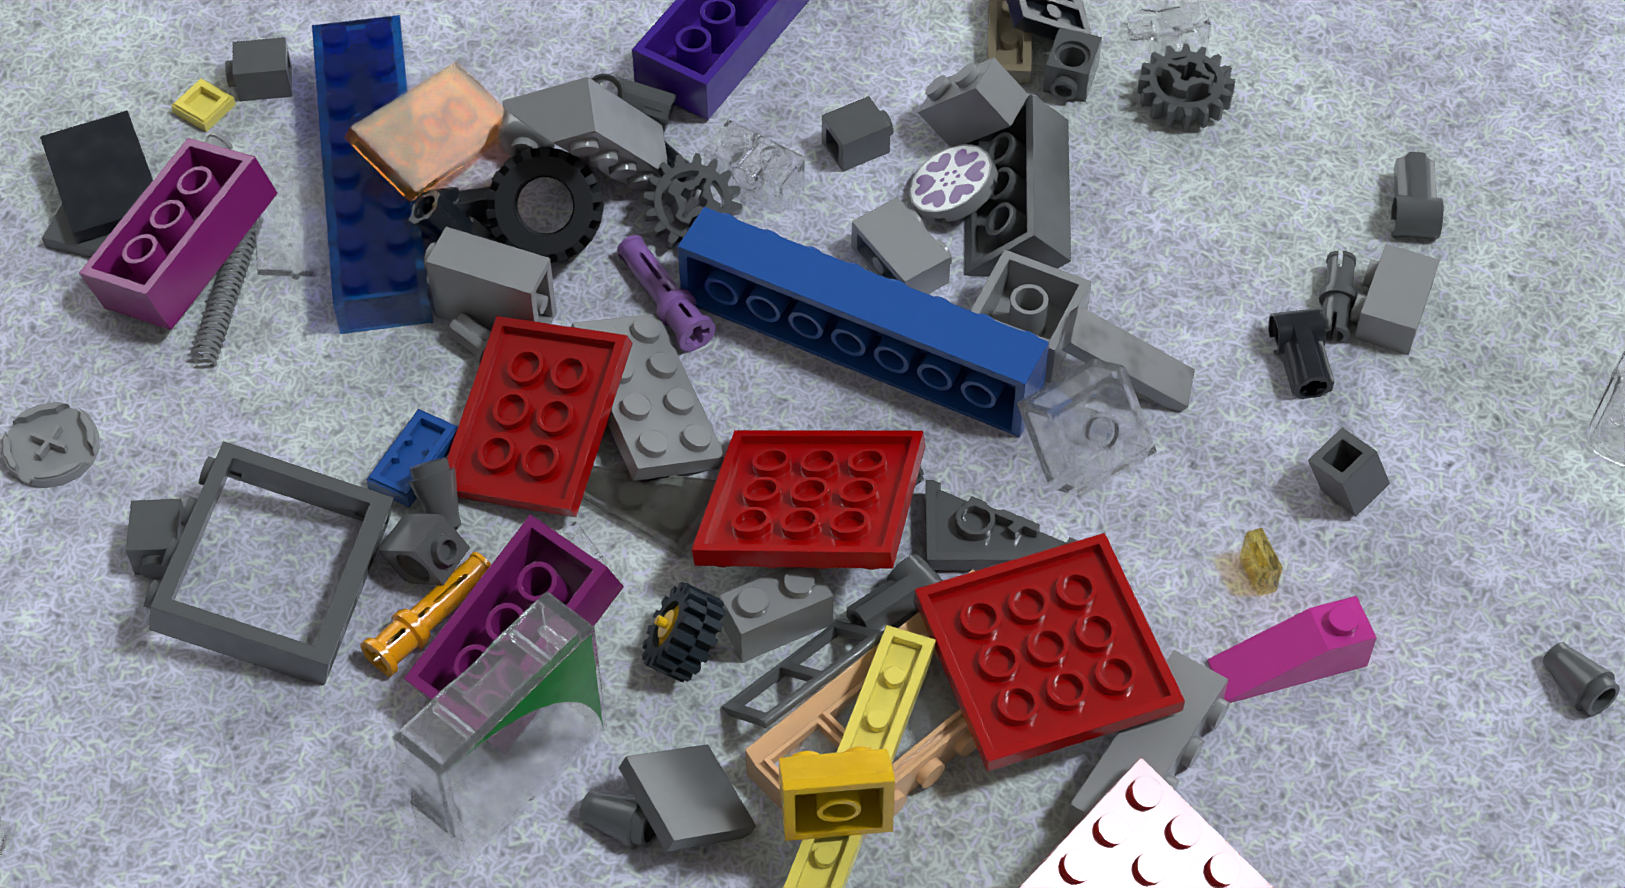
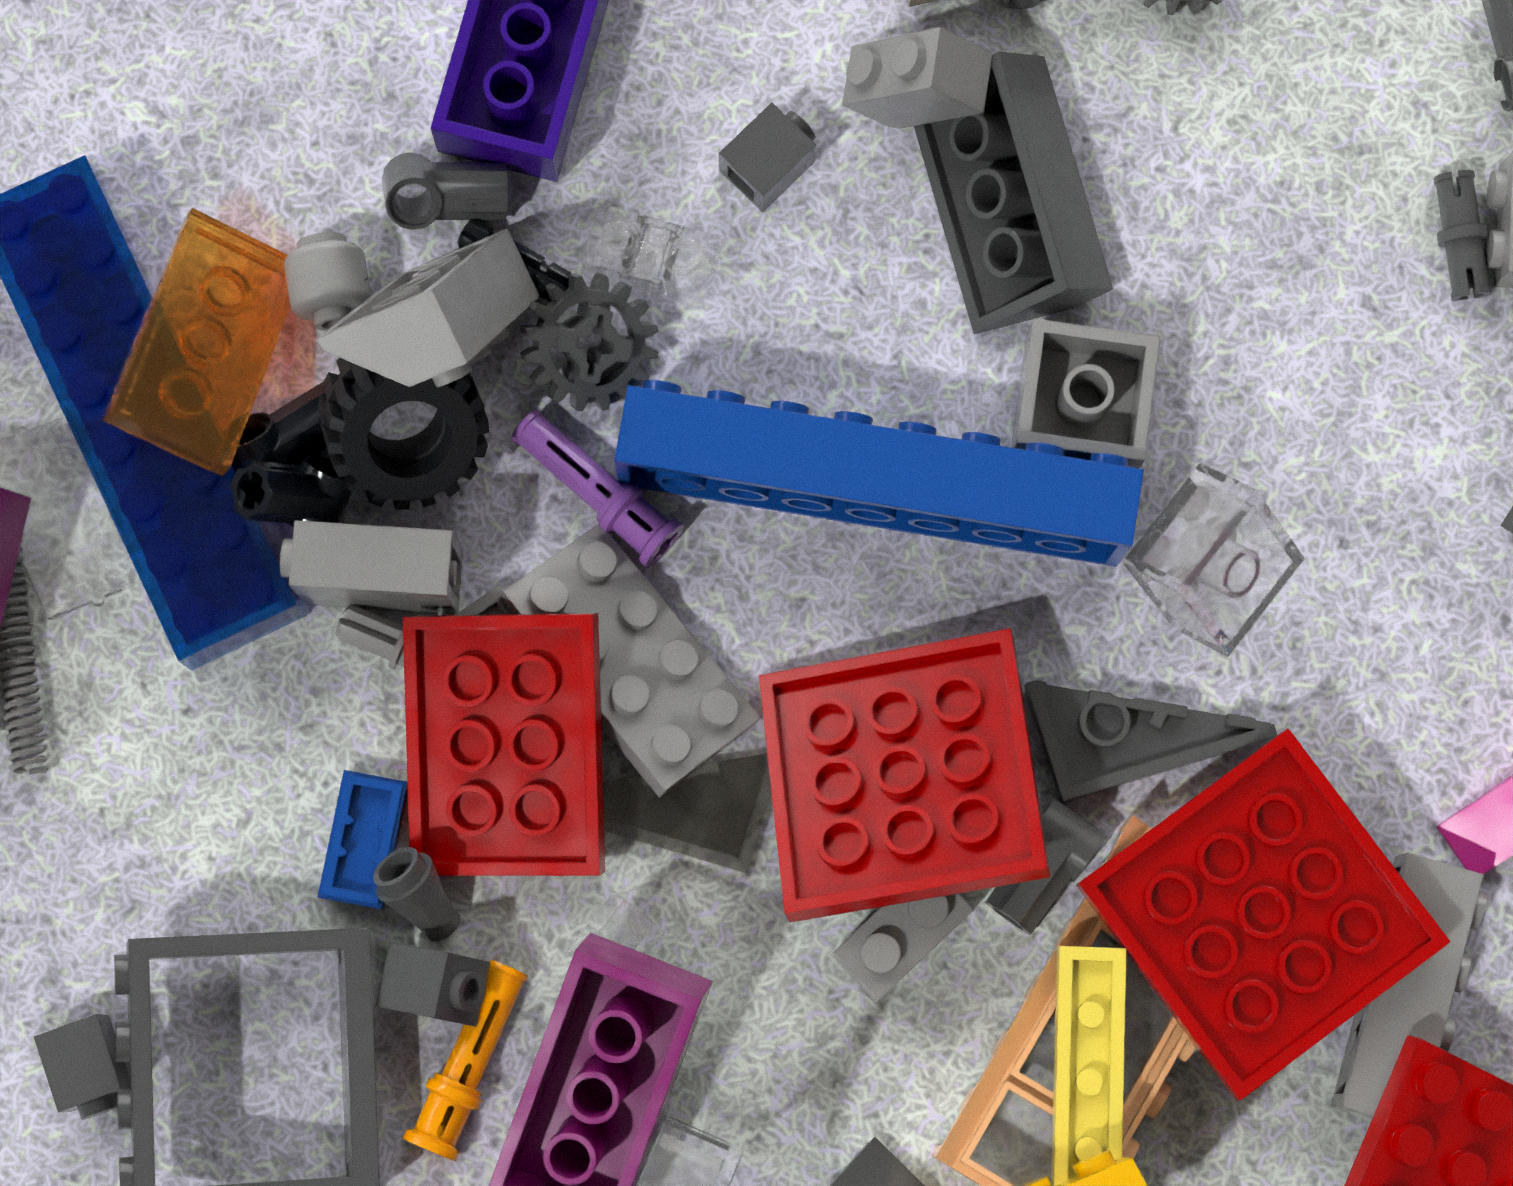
camera: 20 degrees left, 25 degrees up
(683, 632) = (802, 1010): black wheel -> none
(791, 667) = (932, 996): dark grey window -> none
(900, 248) = (887, 333): light grey brick -> none
(953, 183) = (922, 204): tile -> none
(1148, 368) = (1232, 431): flat silver tile -> none
(1260, 562) = (1470, 677): clear yellow tile -> none
(1301, 342) = (1435, 325): black piece -> none

